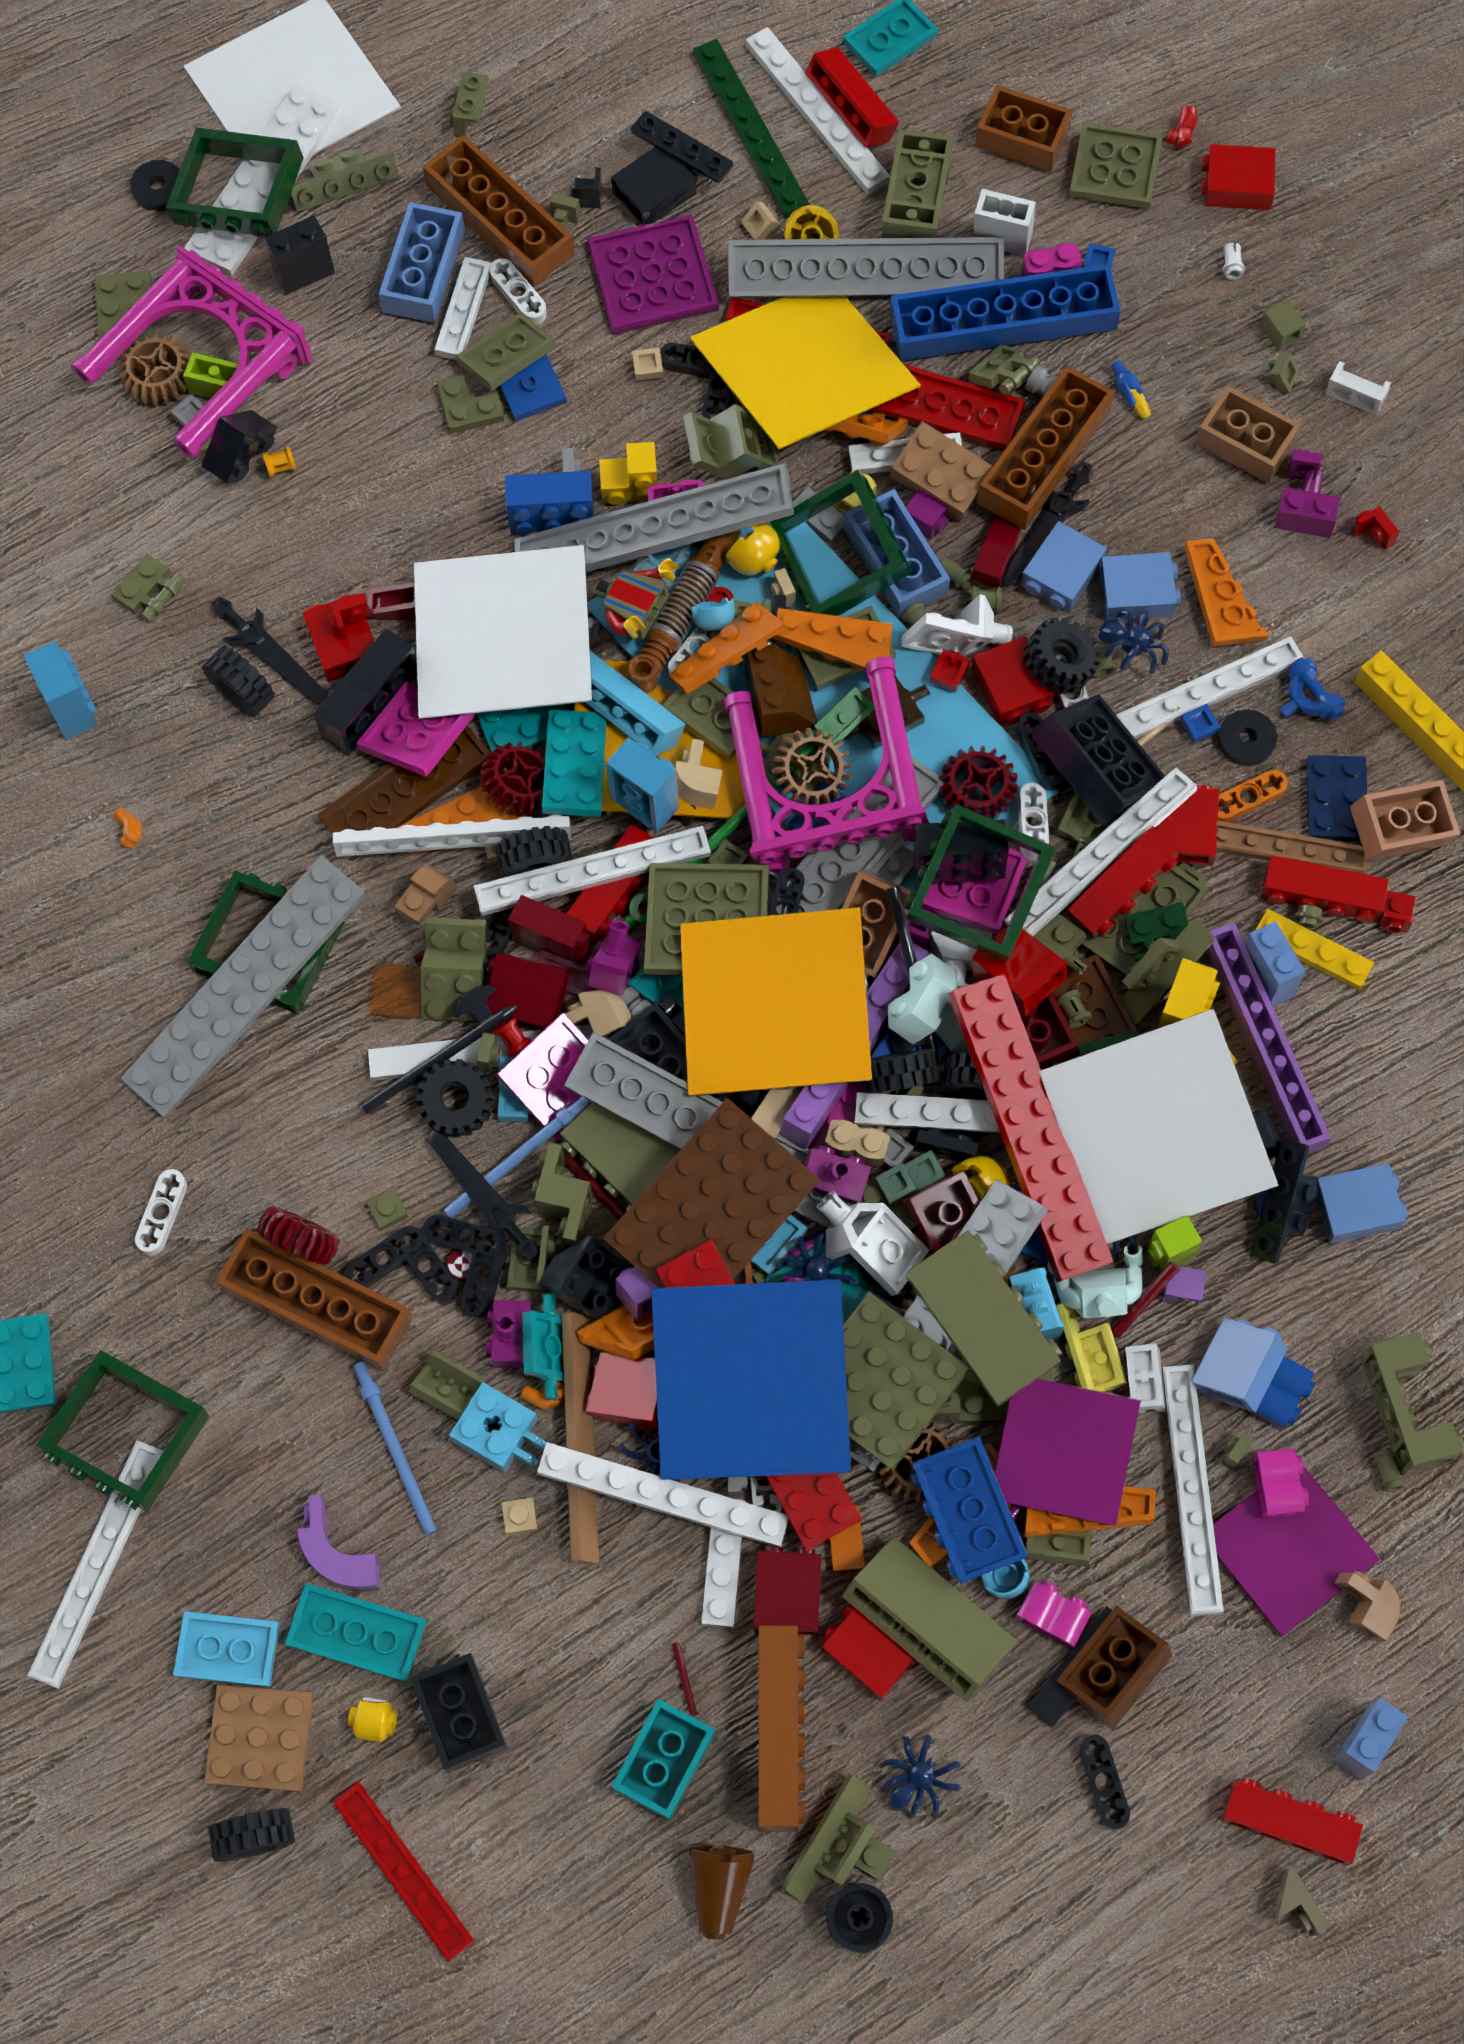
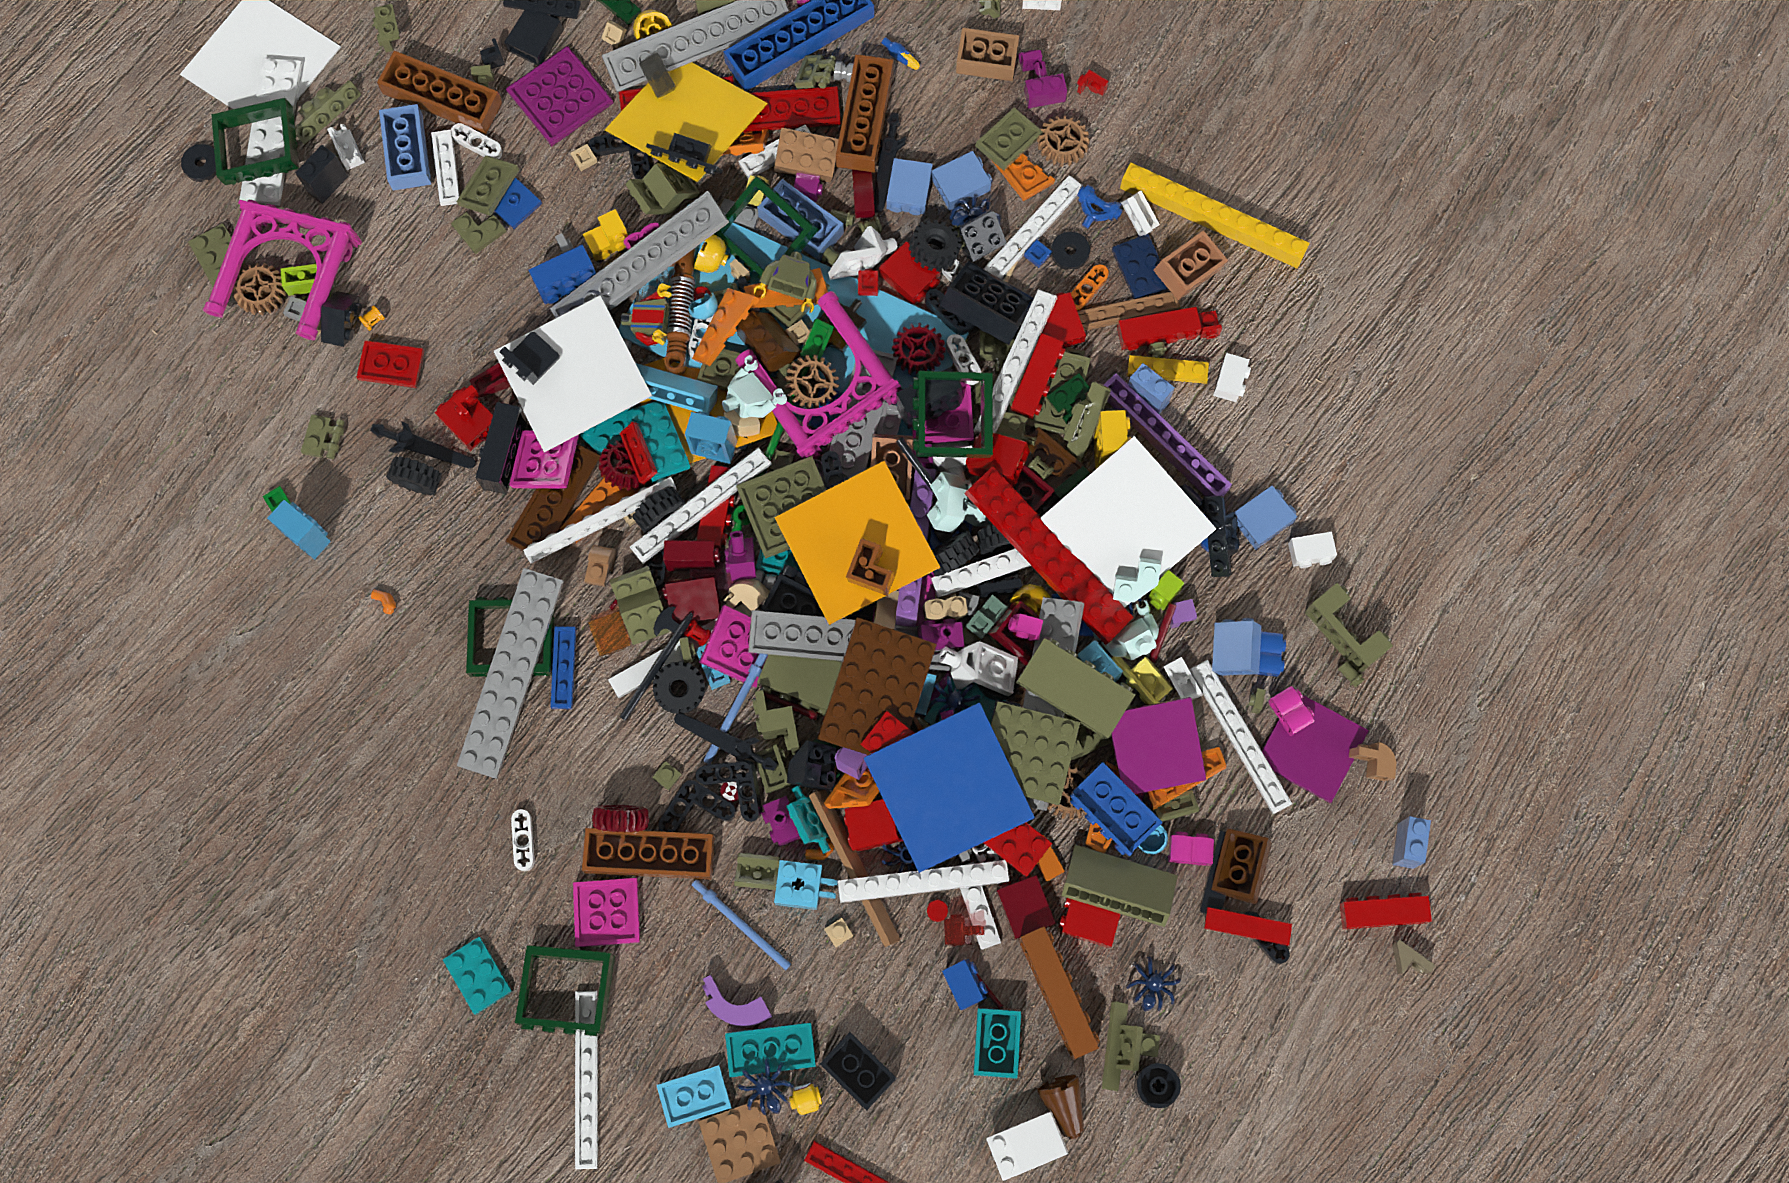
camera: 25 degrees left, 5 degrees up
(50, 635) = (275, 497): none -> green plate
(225, 1354) = (606, 912): none -> dark pink plate
(276, 529) = (390, 364): none -> red plate
(317, 1009) = (563, 668): none -> blue plate
(325, 1677) = (765, 1086): none -> dark blue animal
(348, 234) = (346, 147): none -> white hinge
(456, 589) = (530, 358): none -> black bracket
(540, 767) = (638, 452): none -> red tile
(641, 1918) = (1027, 1146): none -> white slope
(658, 1660) = (965, 984): none -> blue brick
(666, 1545) = (937, 911): none -> red tile
(683, 1584) = (959, 930): none -> clear red brick
(719, 749) = (749, 395): none -> light aqua torso
(767, 1040) = (865, 569): none -> dark orange brick
(784, 403) = (687, 150): none -> black bracket
(790, 294) = (657, 75): none -> clear smoke slope
(824, 698) = (798, 333): none -> tan plate
(843, 618) = (790, 277): none -> olive torso
(954, 1208) = (1026, 626): none -> dark pink brick
(1086, 1755) = (1248, 926): none -> red tile
(1126, 1219) = (1133, 588): none -> light aqua brick
(1131, 667) = (982, 236): none -> bracket
(1227, 555) = (1008, 139): none -> olive plate
(1298, 574) = (1074, 148): none -> medium nougat gear
(1366, 725) = (1140, 213): none -> white panel
(1397, 995) = (1231, 377): none -> white brick
(1409, 1276) = (1312, 549): none -> white brick

